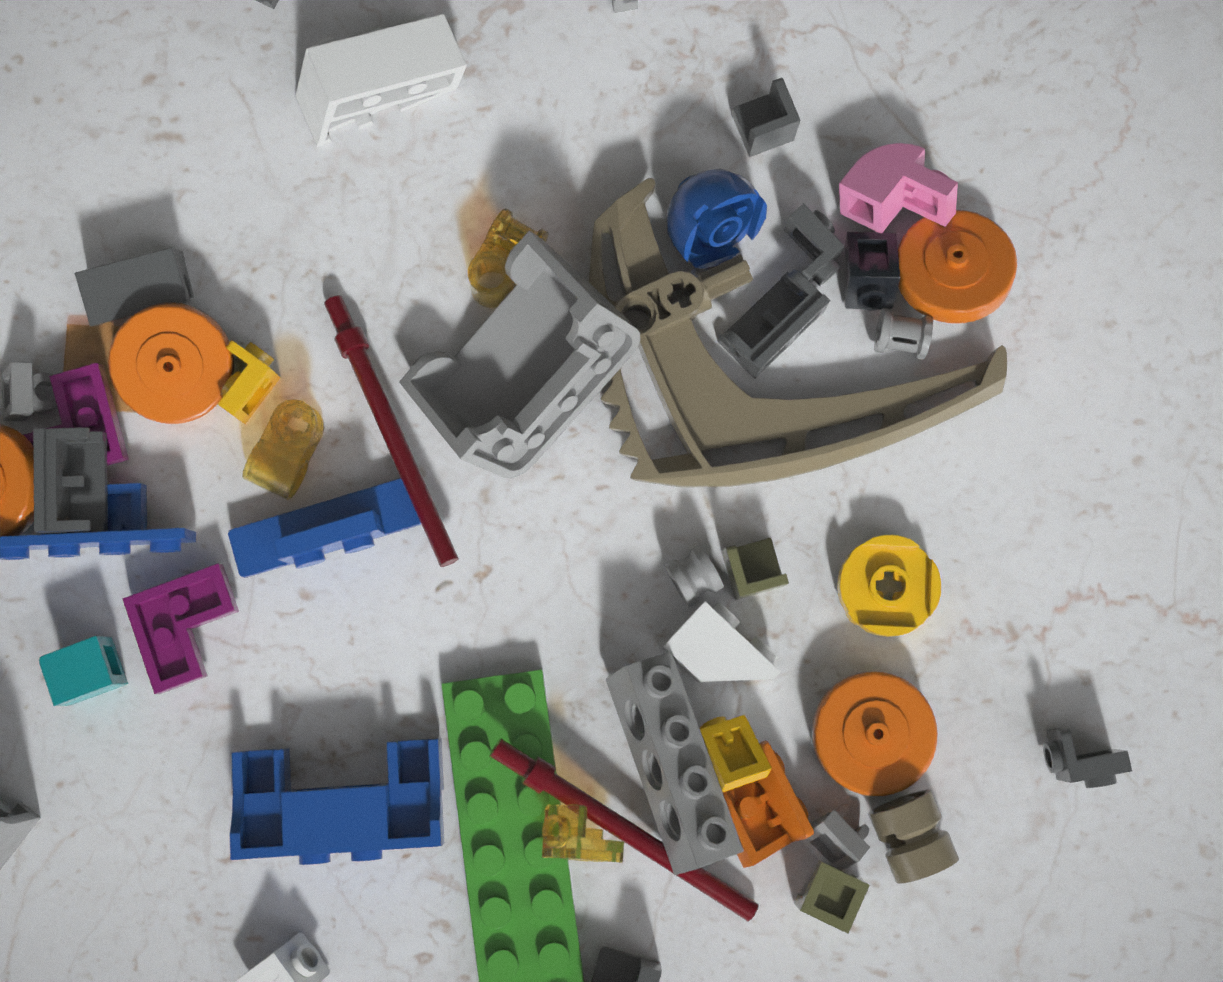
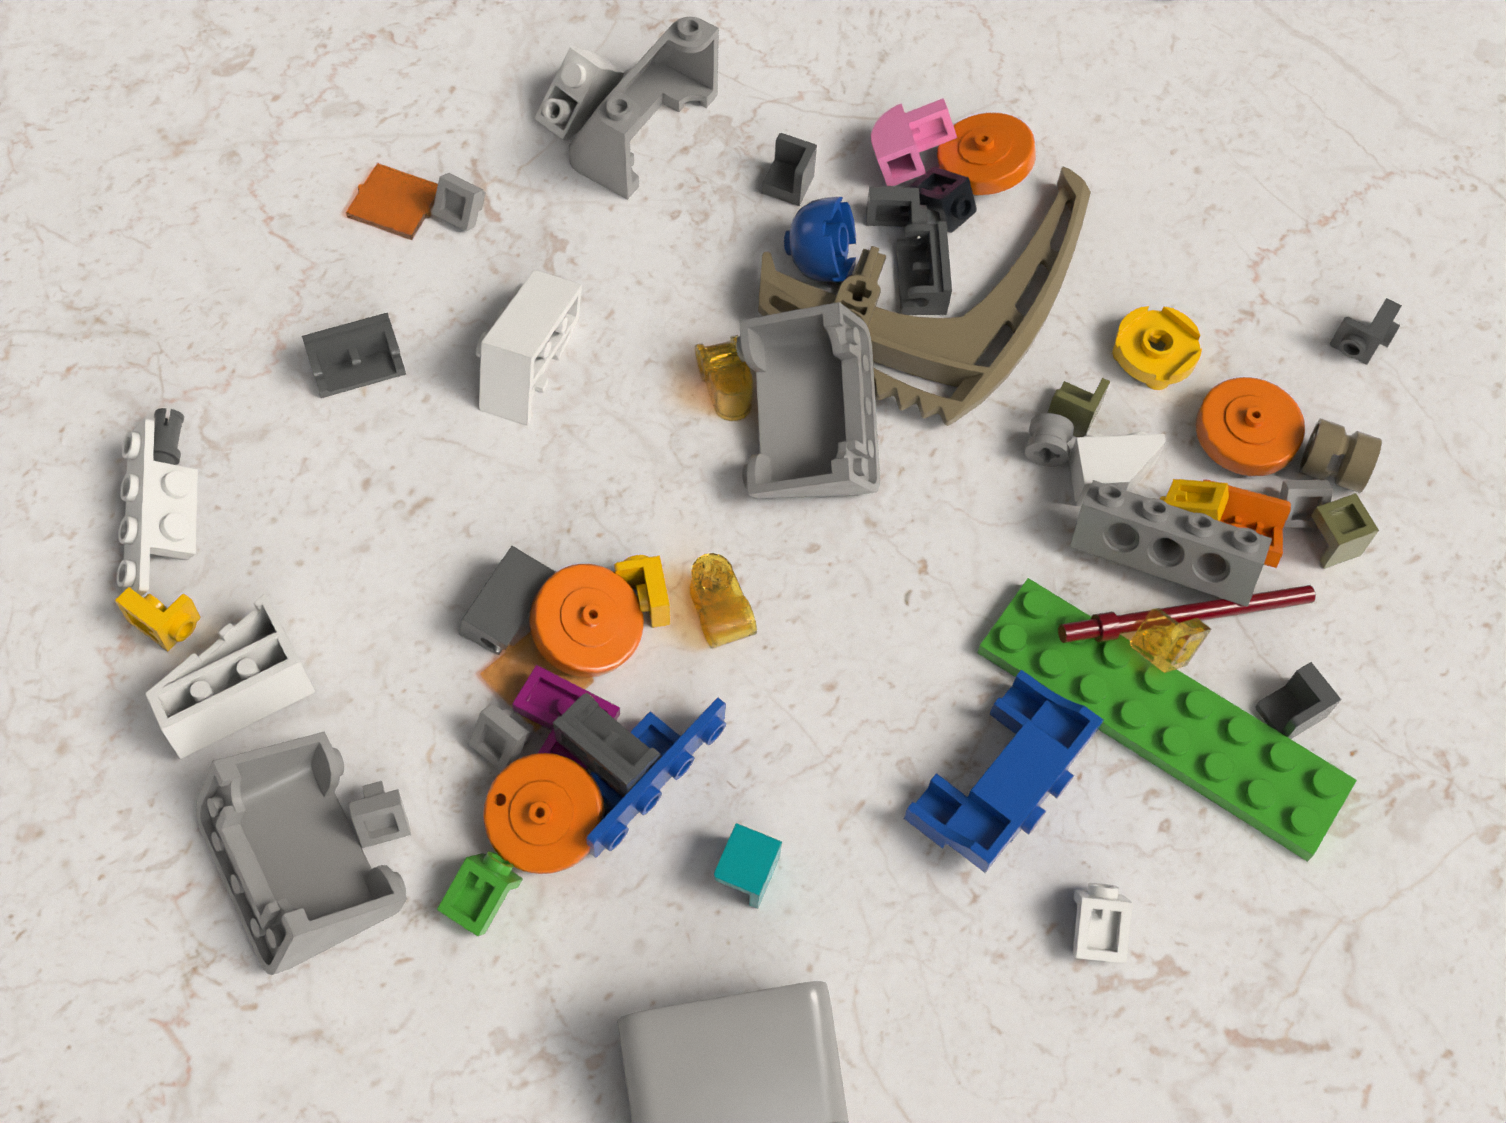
camera: 50 degrees left, 20 degrees down
(165, 620) = (763, 783): magenta plate -> none
(322, 528) = (800, 626): blue bracket -> none
(354, 347) = (688, 508): dark red bar -> none
(903, 333) = (1001, 212): light grey bush -> none

